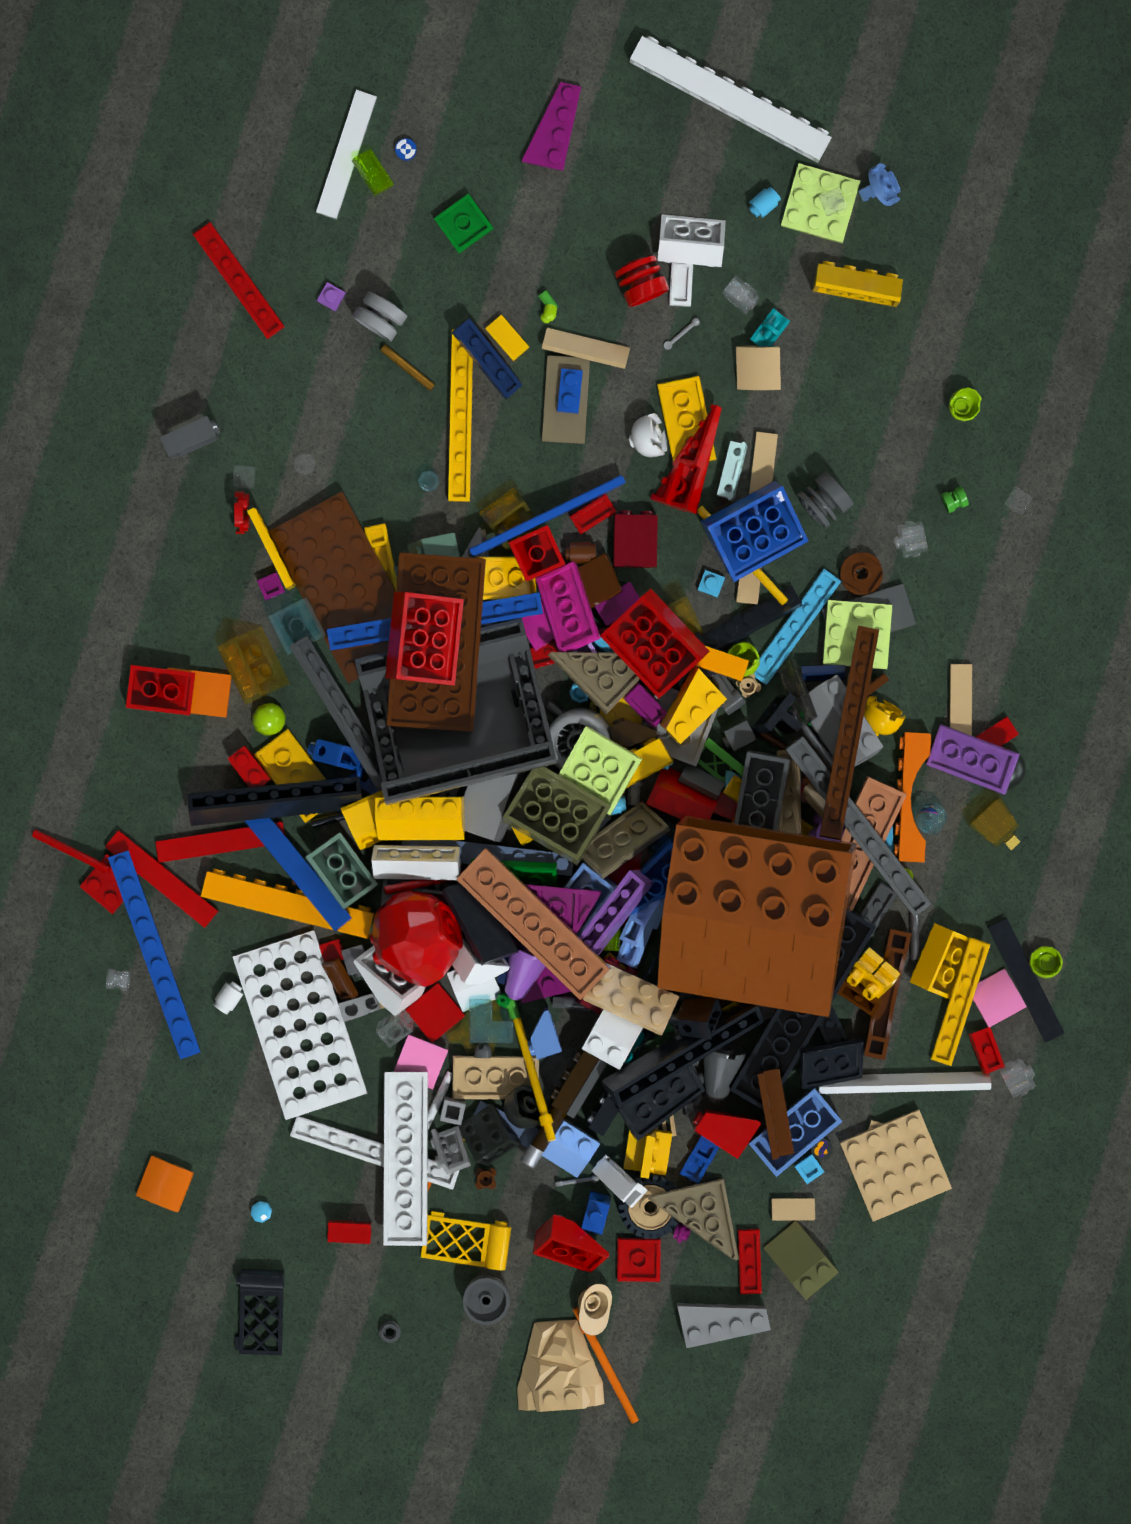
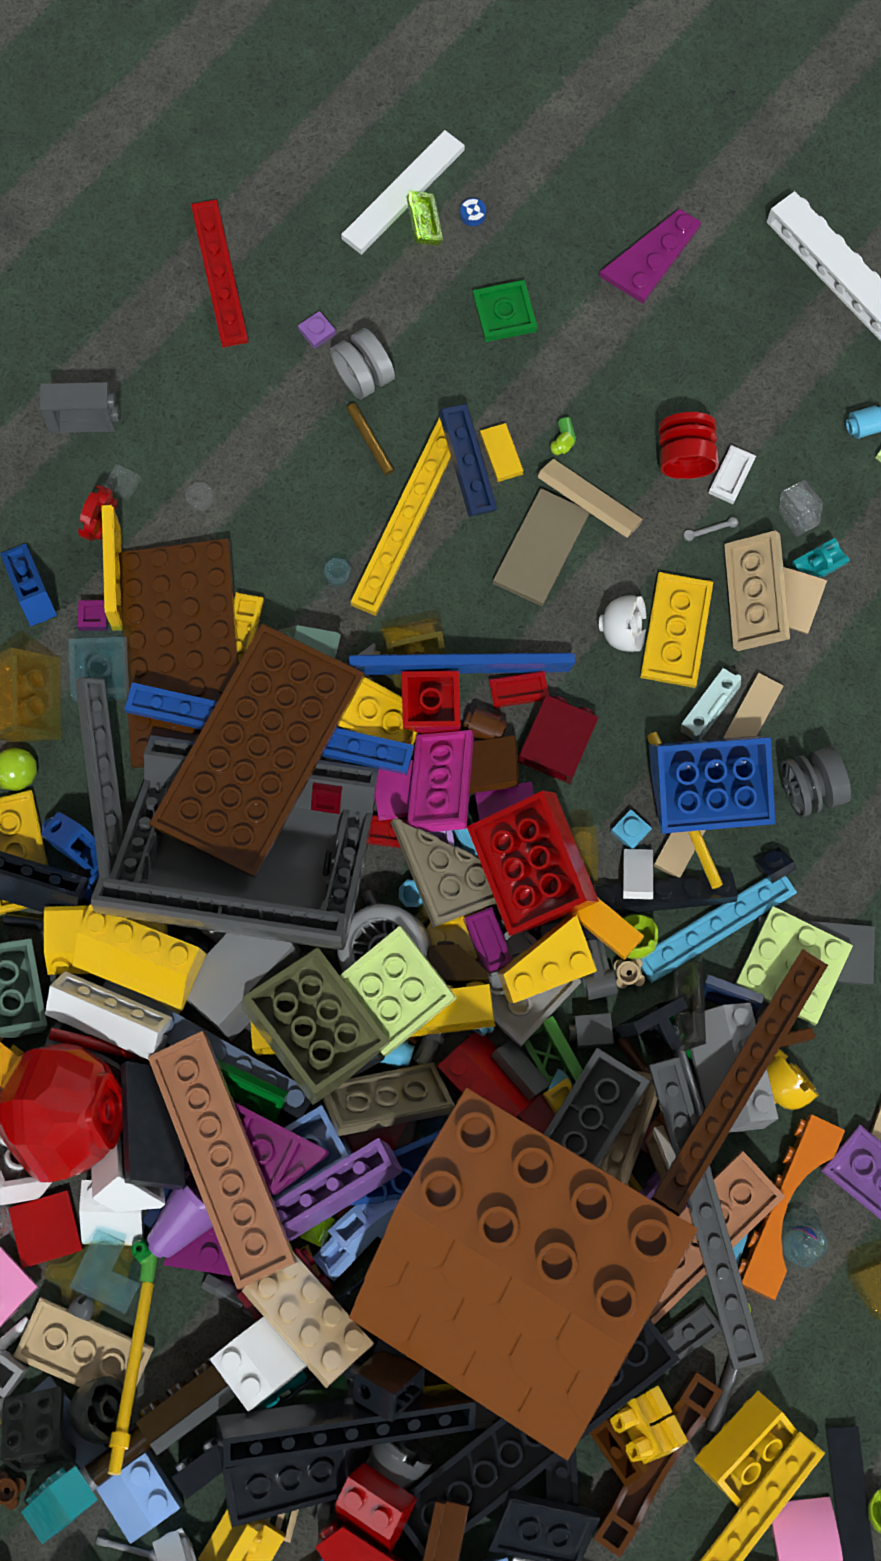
camera: 20 degrees right, 15 degrees down
(214, 582) = (28, 585): none -> blue slope
(424, 638) = (244, 733): red slope -> none
(495, 653) = (326, 798): none -> dark red tile
(525, 1171) = (58, 1503): none -> teal brick
(544, 1037) = (170, 1320): medium blue slope -> none
(569, 391) = (550, 536): blue plate -> none
(686, 479) = (647, 696): red wedge -> none
(691, 240) = (763, 430): white slope -> none
(721, 1093) = (374, 1507): none -> red slope
(728, 615) = (638, 874): none -> white tile
(732, 372) = (757, 591): none -> tan plate
(819, 568) = (775, 865): none -> black plate
(864, 585) = (827, 877): reddish brown plate -> none

